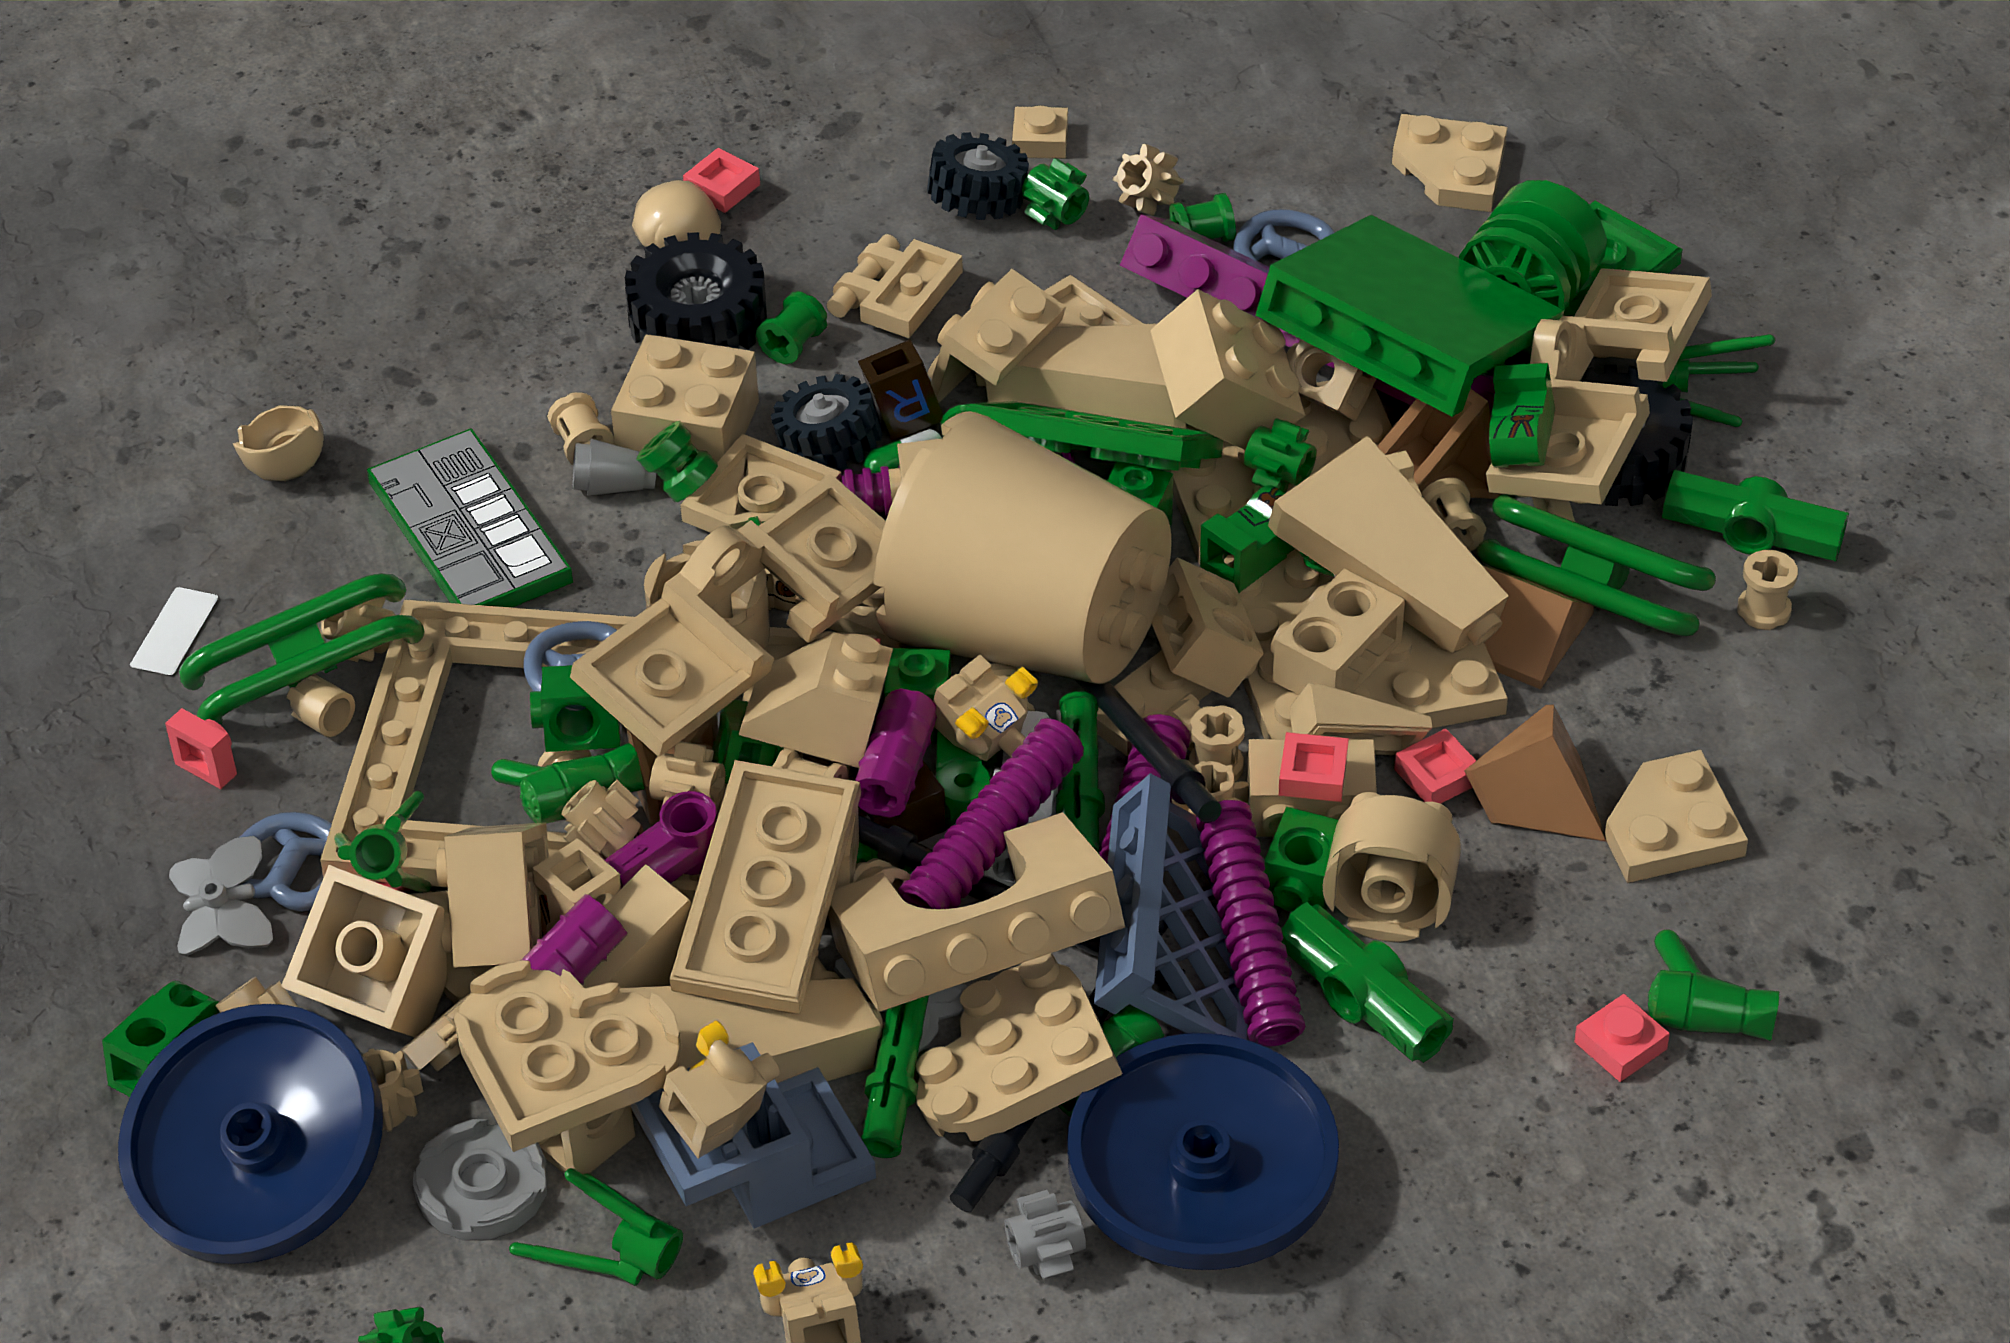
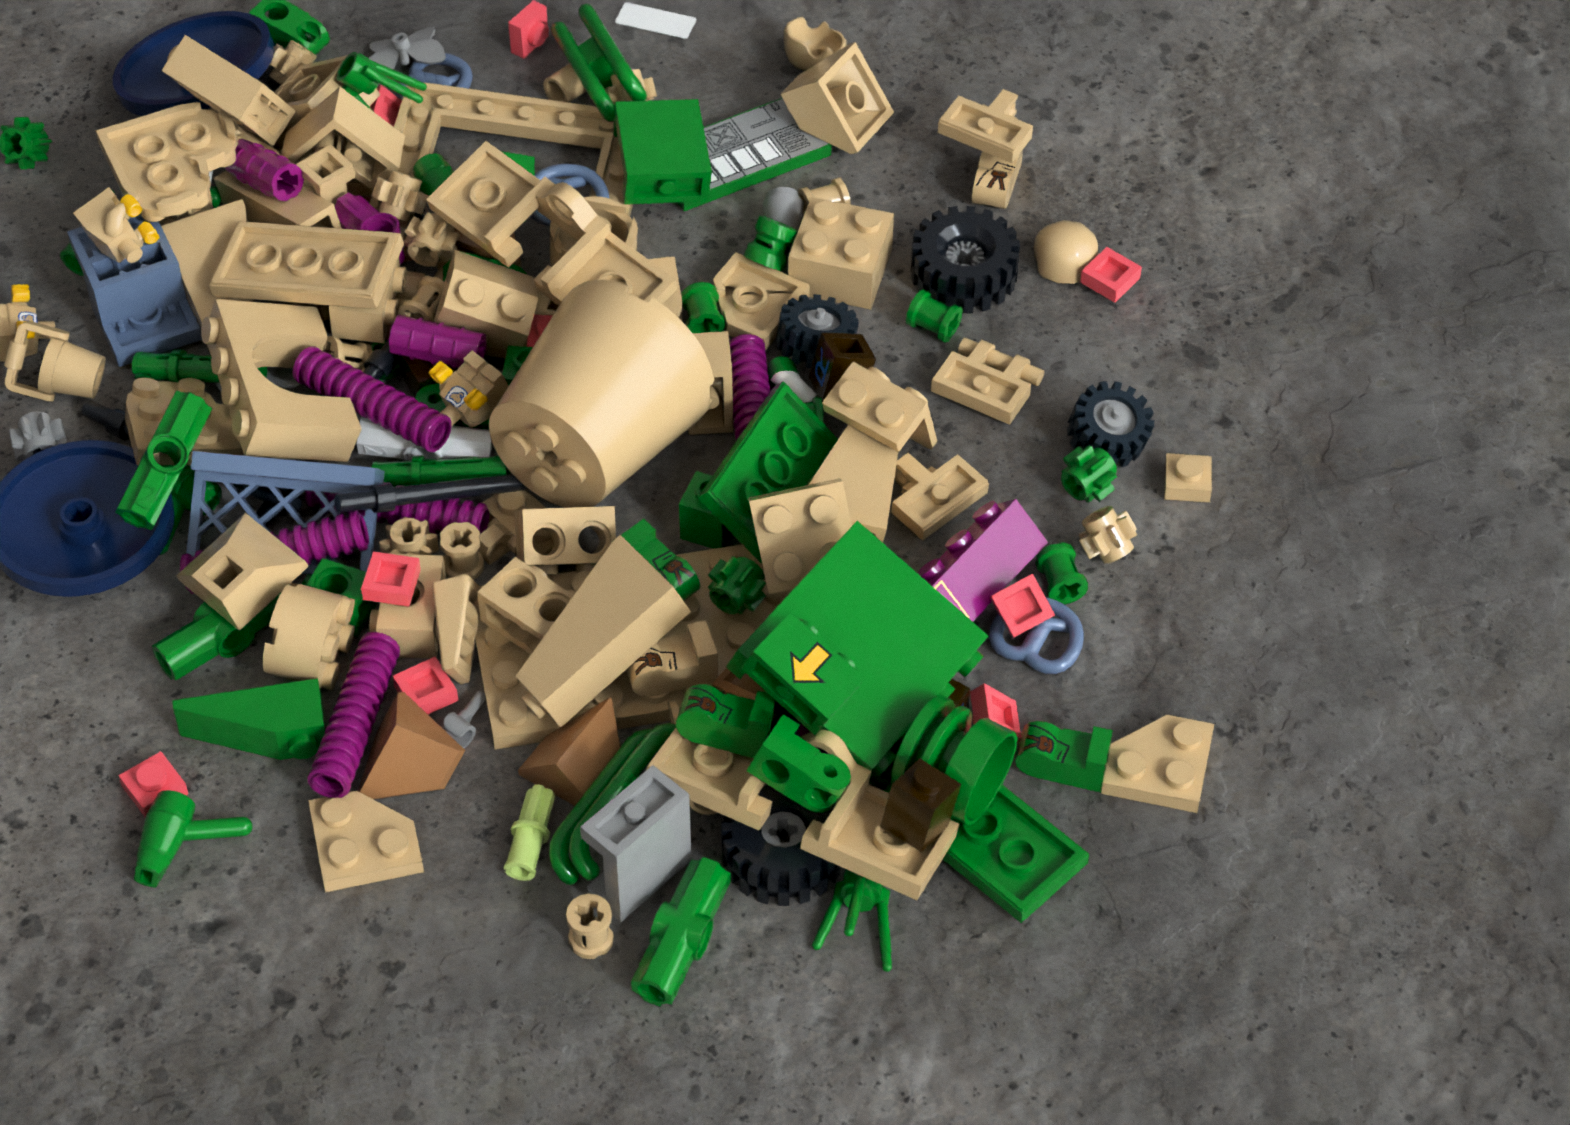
camera: 90 degrees right, 5 degrees up
(409, 406) = (839, 100): none -> tan slope
(422, 984) = (228, 88): none -> tan window
(499, 248) = (987, 127): none -> tan hinge
(500, 557) = (662, 151): none -> green panel
(534, 274) = (995, 180): none -> tan leg
(903, 1229) = (63, 368): none -> tan piece
(1141, 1012) = (152, 482): none -> green piece
(1270, 233) = (1022, 606): none -> coral plate
(1320, 918) = (242, 571): none -> tan slope
(1461, 206) = (1064, 754): none -> green leg
(1481, 739) = (458, 724): none -> light grey hand
(1495, 310) = (803, 672): none -> green brick
(1512, 902) = (264, 720): none -> green slope
(1535, 820) = (353, 715): none -> magenta piece
(1592, 349) = (800, 769): none -> green leg
(1615, 264) = (920, 805): none -> dark brown brick
(1637, 657) = (530, 833): none -> yellowish green axle
(1692, 507) = (641, 840): none -> light grey panel

